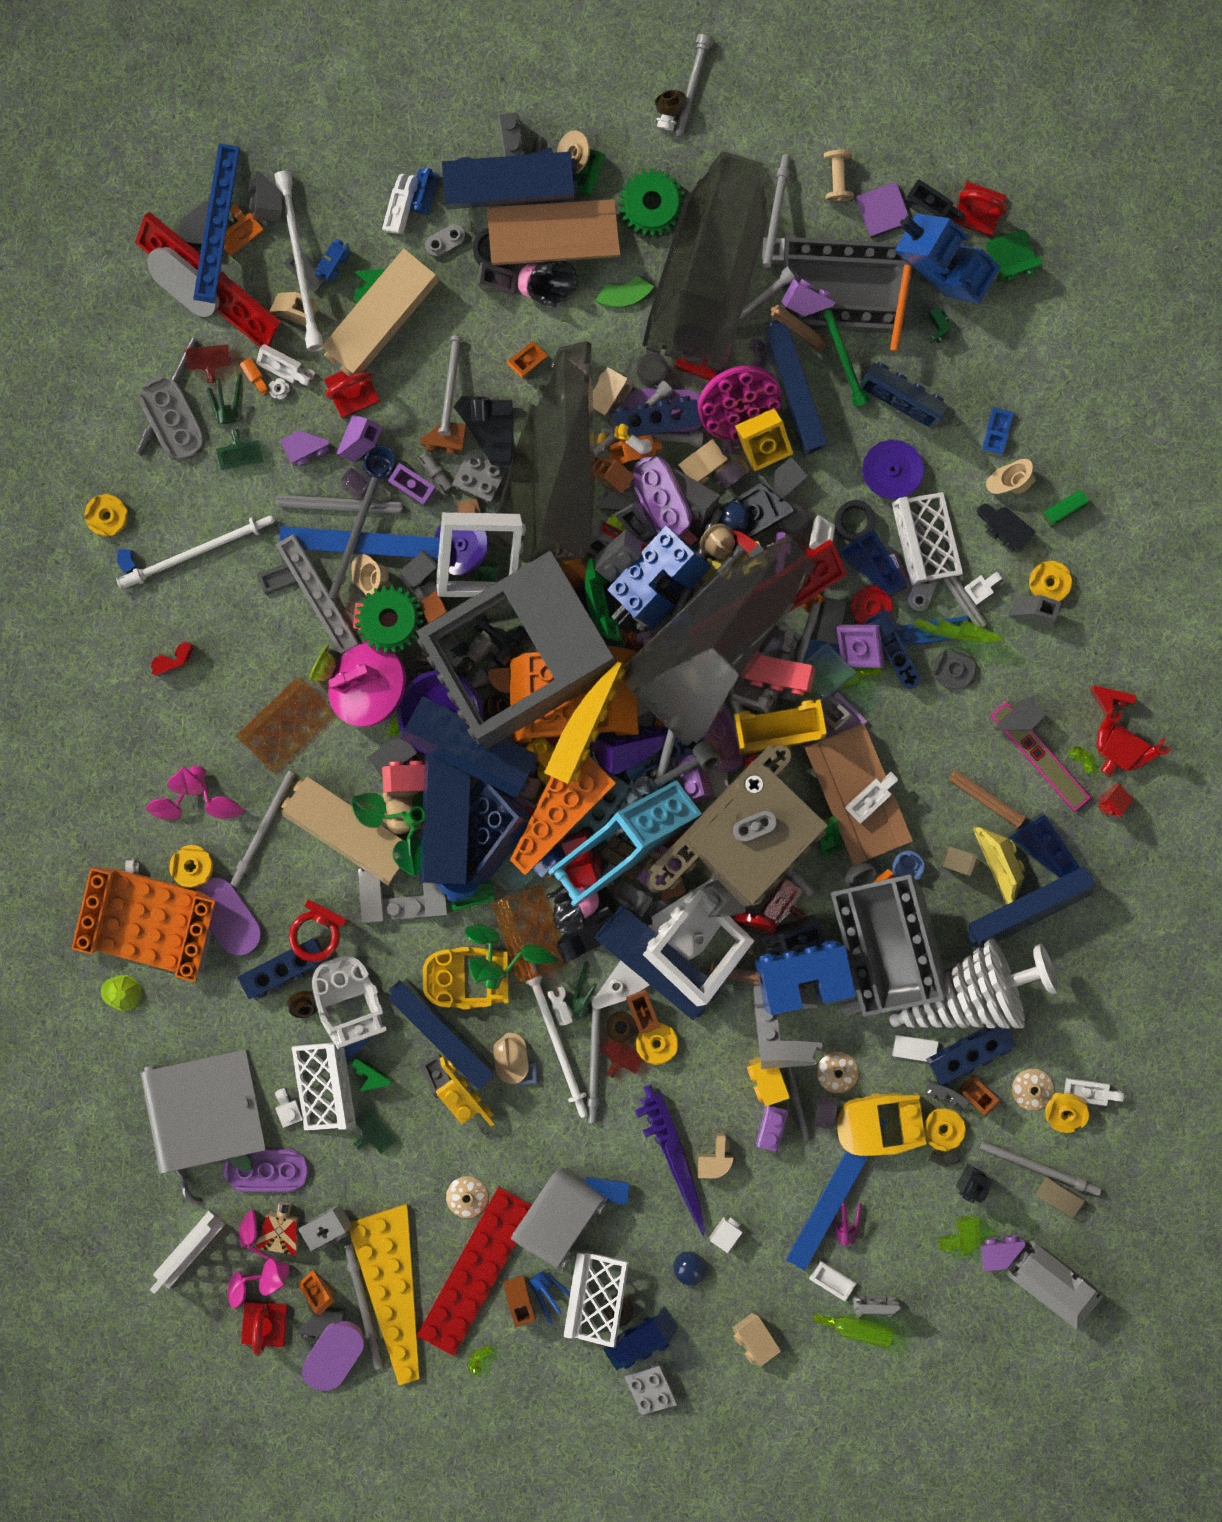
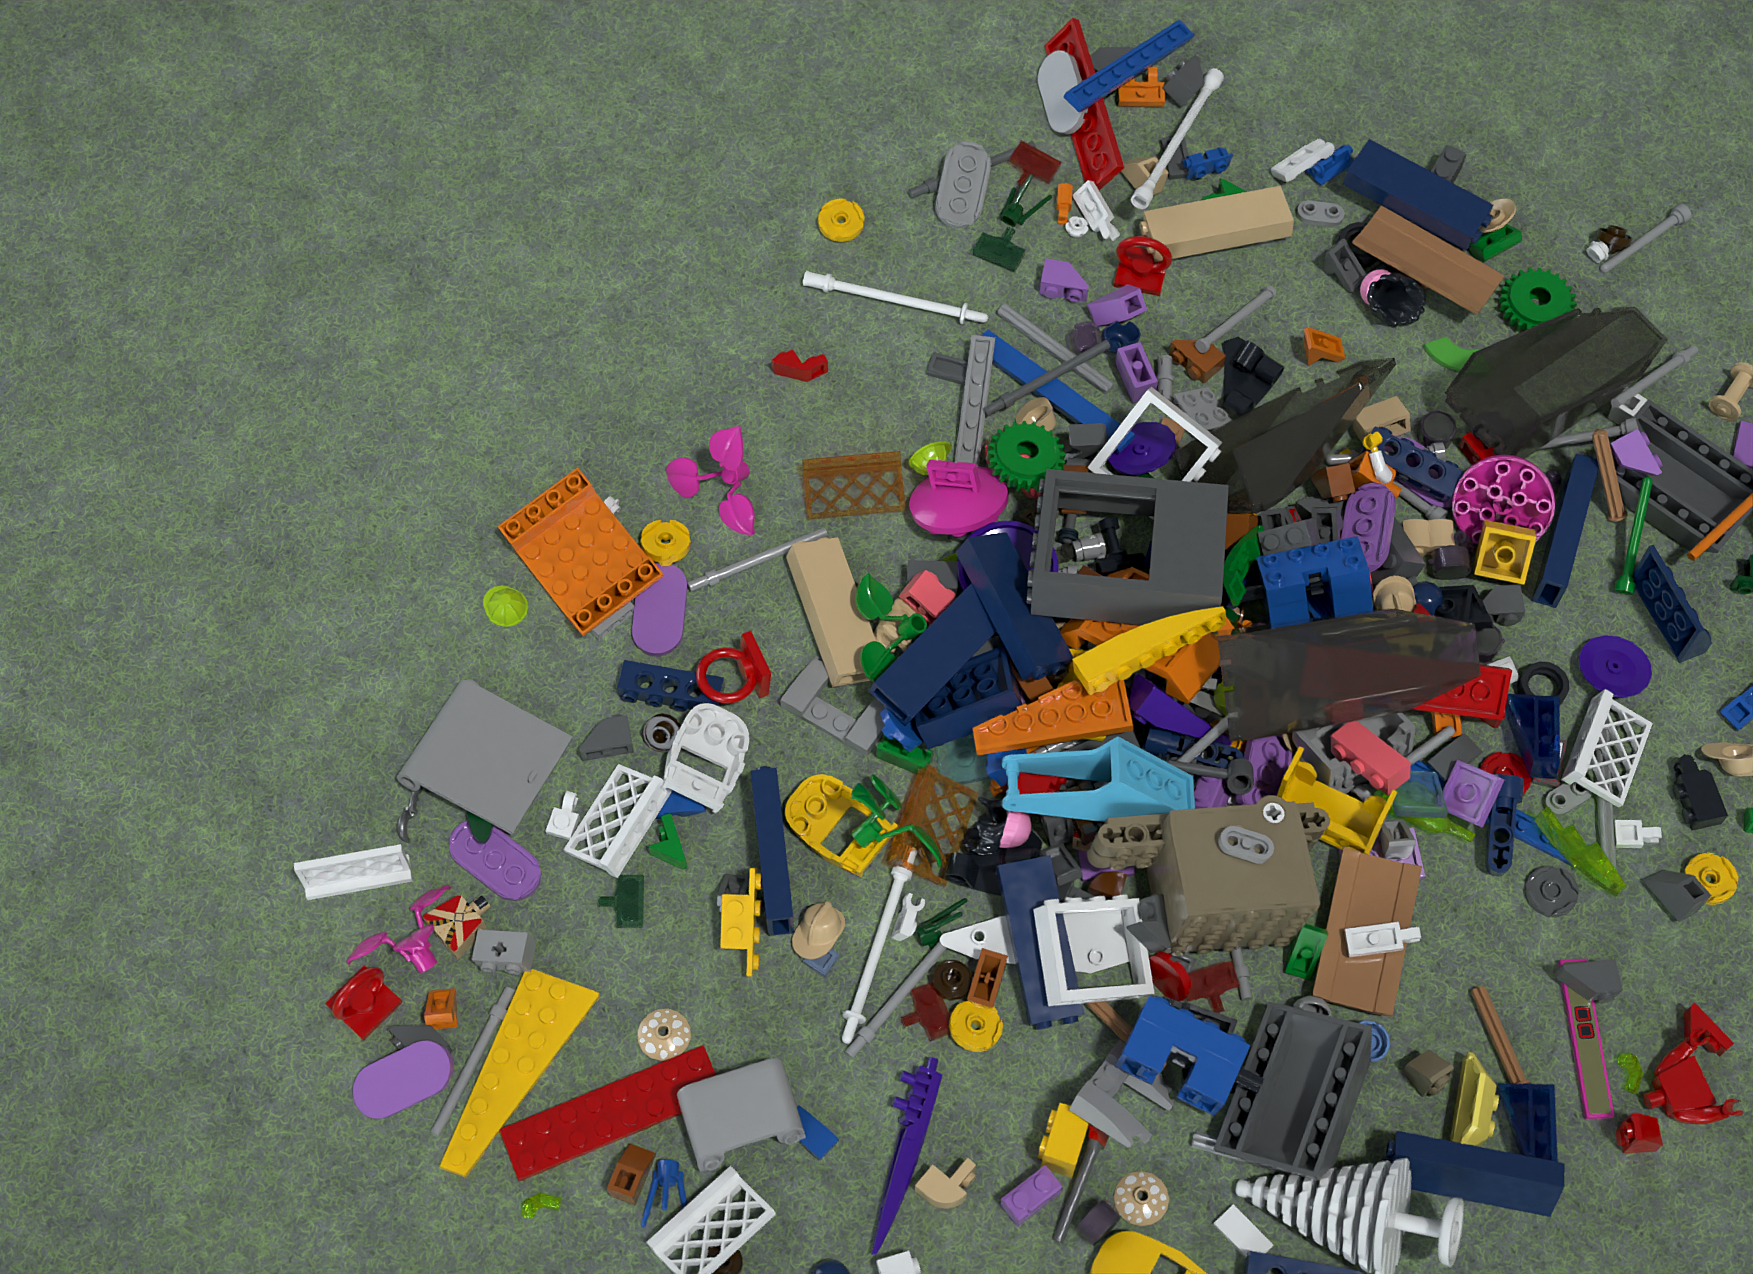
camera: 40 degrees right, 25 degrees down
(125, 560) = (828, 263): blue piece -> none
(271, 1034) = (608, 739): none -> dark grey slope

